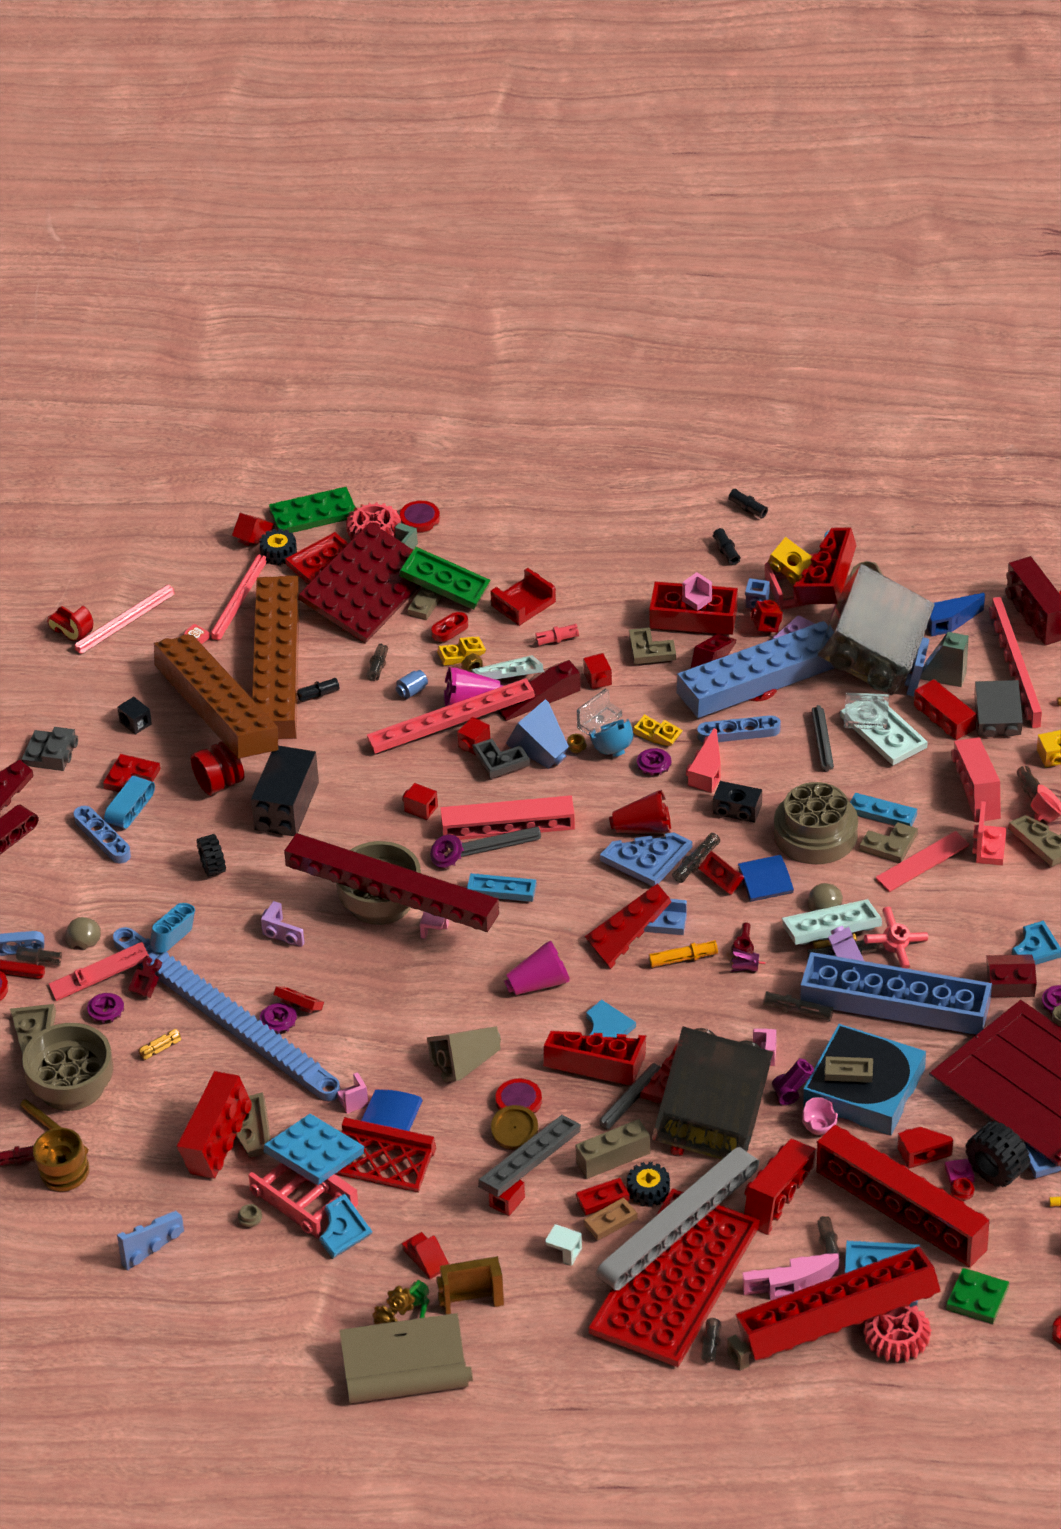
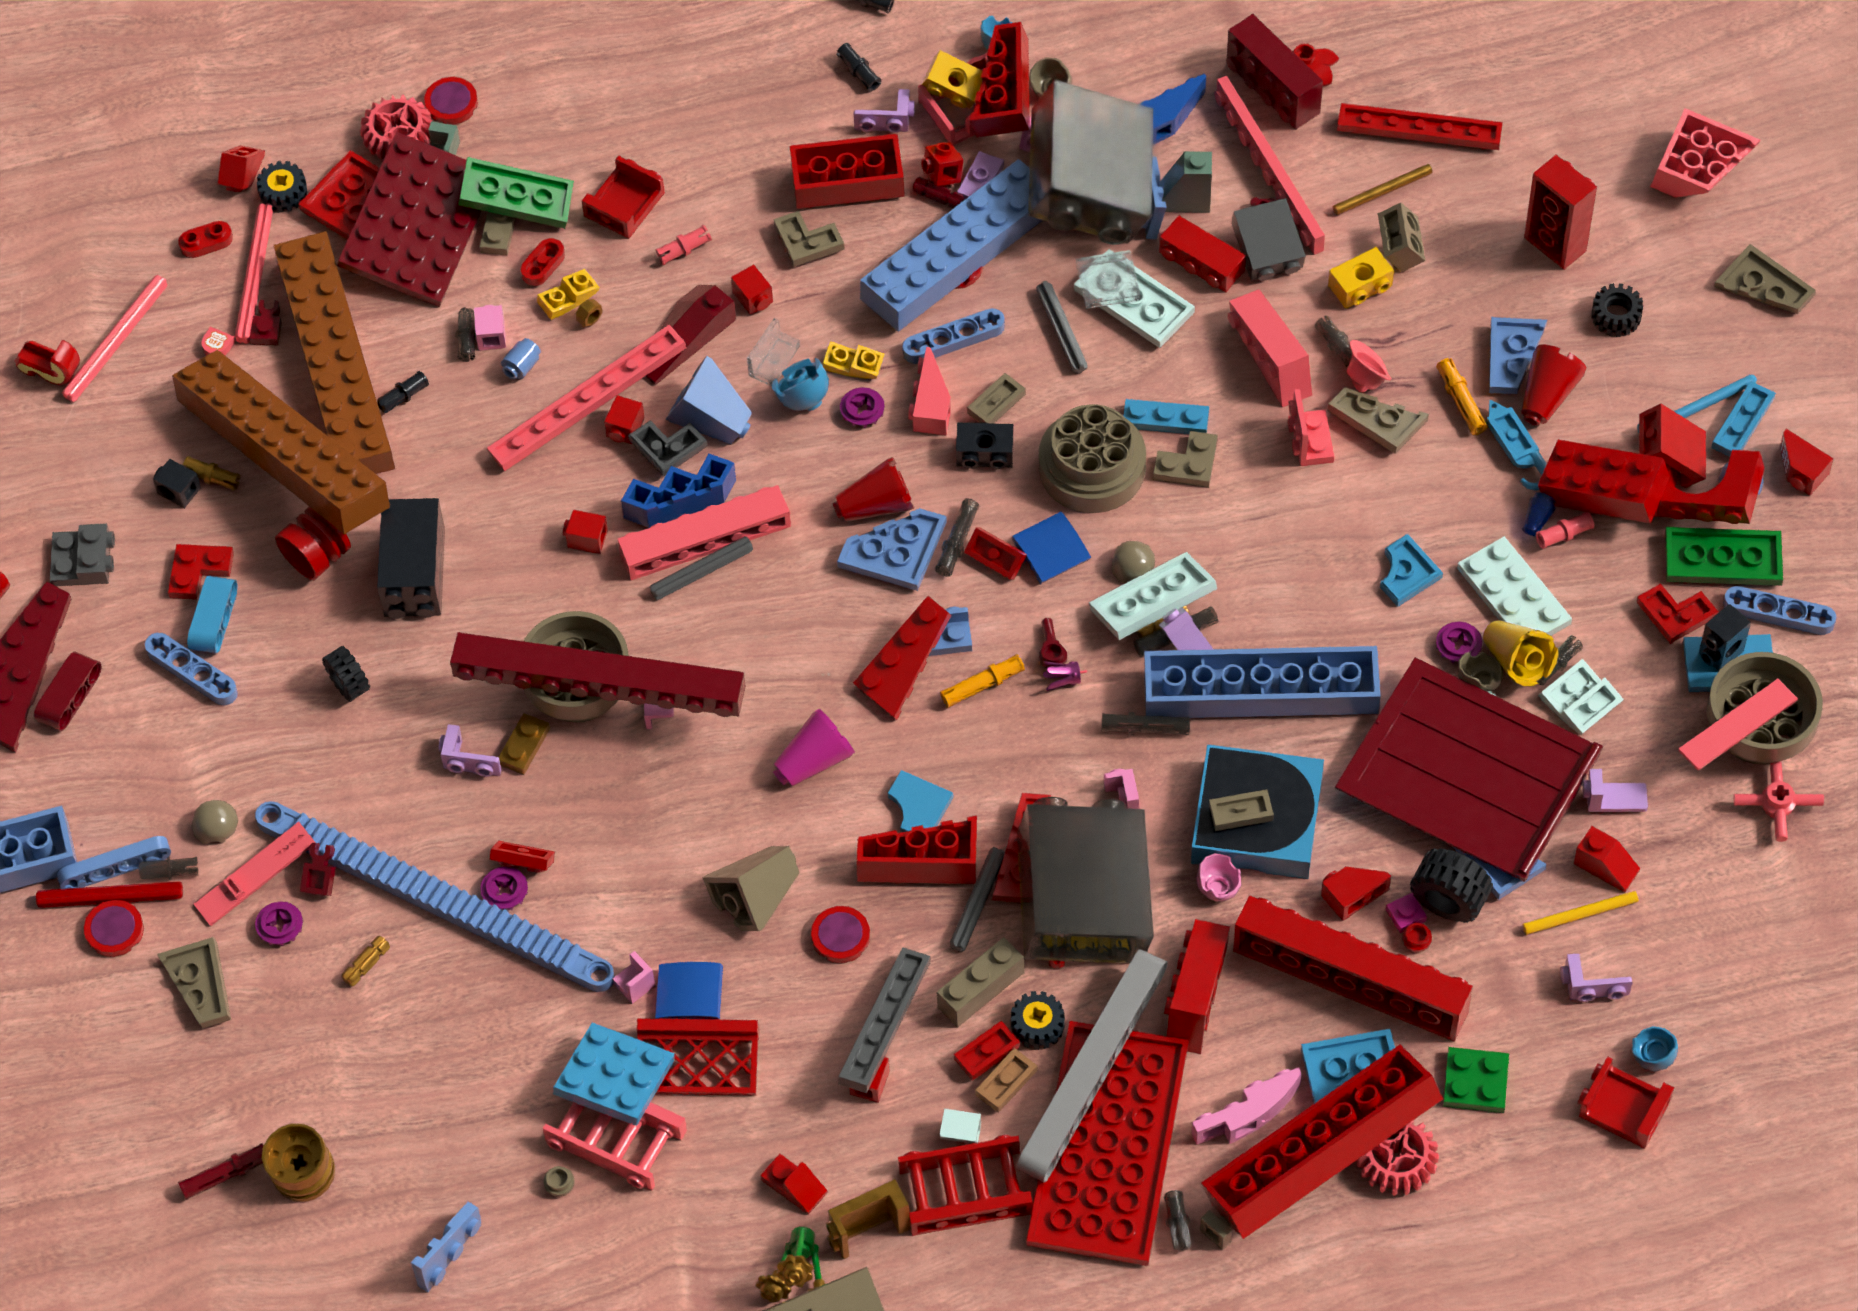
camera: 15 degrees left, 15 degrees up
(42, 1117) = (257, 1105): pearl gold bar -> none
(68, 1065) = (248, 998): dark tan wheel -> none
(163, 715) = (212, 473): none -> pearl gold pin
(172, 927) = (330, 792): dark azure beam -> none
(211, 570) = (205, 239): none -> red plate
(214, 1124) = (479, 1070): red brick -> none
(236, 632) = (267, 327): none -> dark red plate
(255, 1127) = (516, 1049): dark tan wing -> none
(312, 510) = (309, 120): green plate -> none
(326, 928) = (524, 743): none -> pearl gold plate
(344, 1227) = (683, 1170): dark azure tile -> none
(396, 660) = (490, 327): none -> bright pink brick
(441, 845) = (633, 592): magenta gear -> none
(466, 684) = (594, 350): dark pink cone -> none
(497, 786) = (679, 493): none -> blue brick
(503, 887) = (727, 635): dark azure plate -> none
(511, 668) = (639, 310): light aqua wing -> none
(514, 1126) = (849, 964): pearl gold piece -> none
(553, 1301) = (959, 1214): none -> red fence
(576, 743) = (757, 396): pearl gold plate -> none
(697, 591) = (851, 154): bright pink panel -> none
(712, 649) = (888, 231): dark red slope -> none
(726, 579) = (887, 120): none -> lavender bracket
(753, 596) = (918, 140): medium blue brick -> none
(753, 634) = (937, 193): none -> dark red axle
(757, 774) = (996, 400): none -> dark tan plate
(788, 1084) = (1169, 840): magenta piece -> none
(827, 1238) = (1276, 1043): clear smoke axle -> none
(895, 937) = (1237, 601): coral bar -> none
(922, 861) = (1235, 480): coral piece -> none
(1011, 975) = (1392, 621): dark red slope -> none

